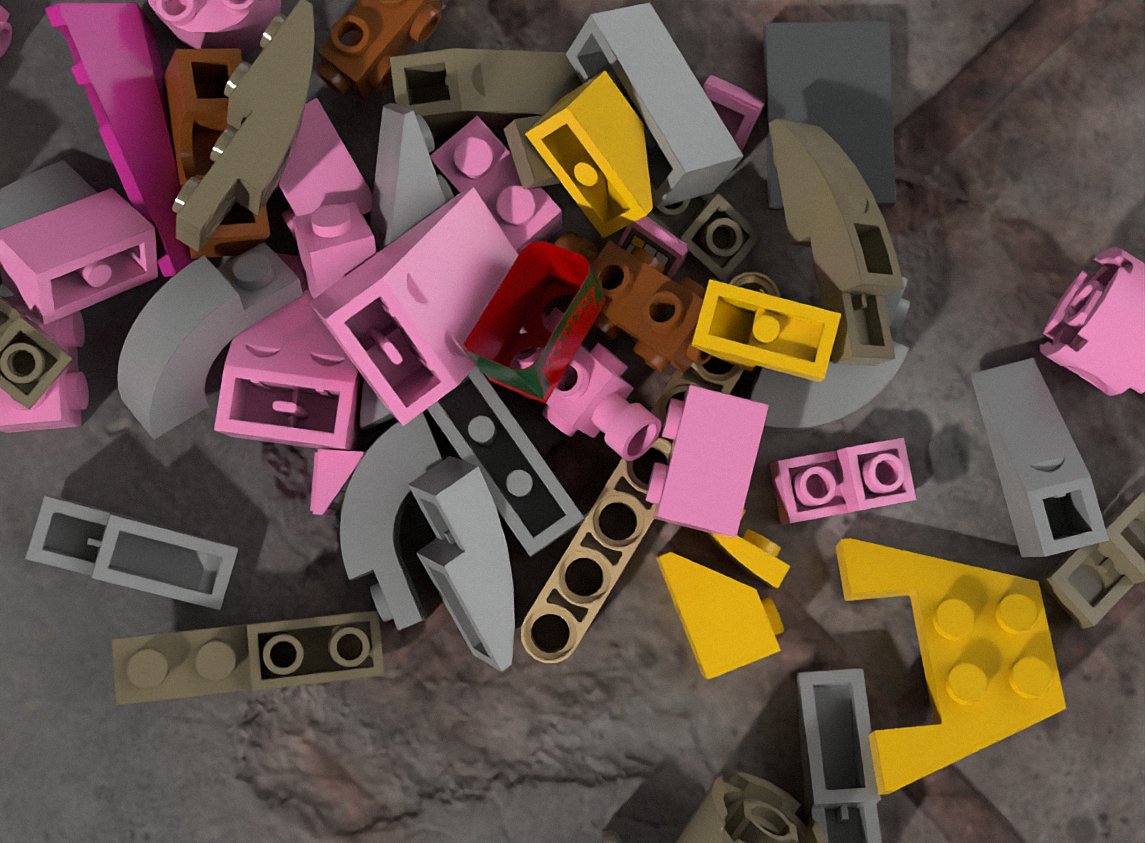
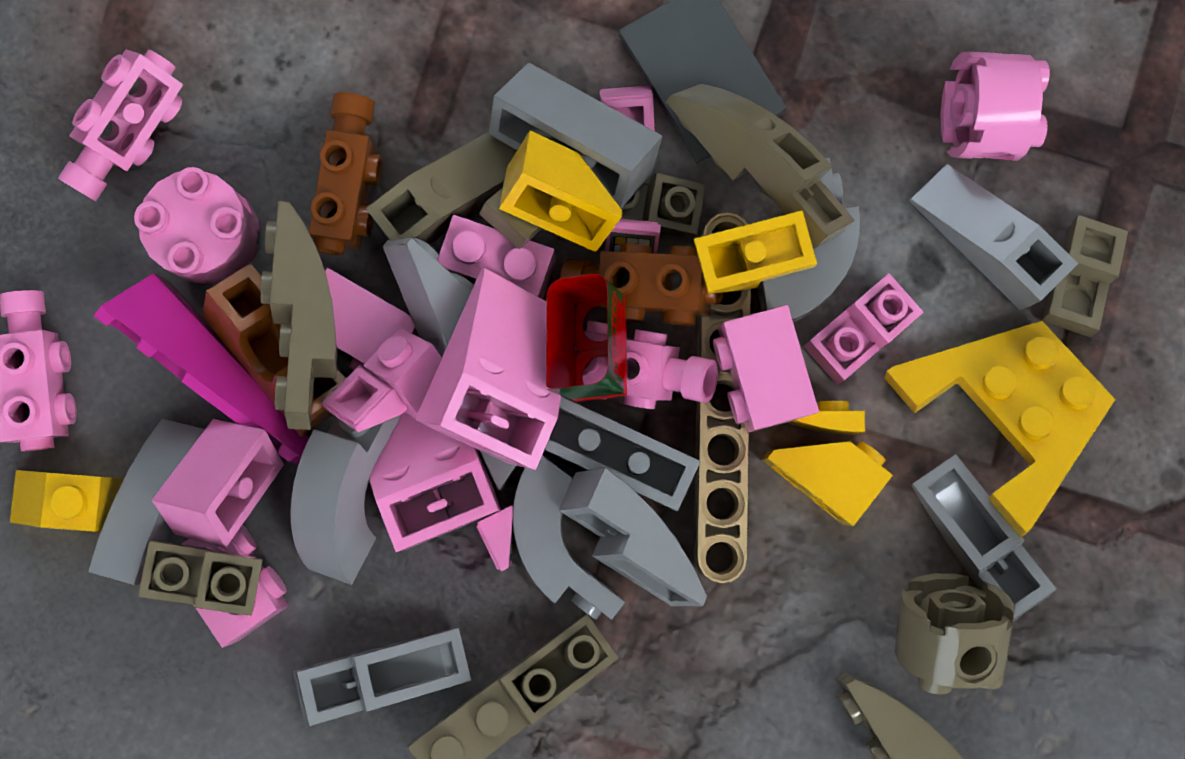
camera: 30 degrees left, 0 degrees up
(271, 255) = (364, 401): none -> bright pink slope

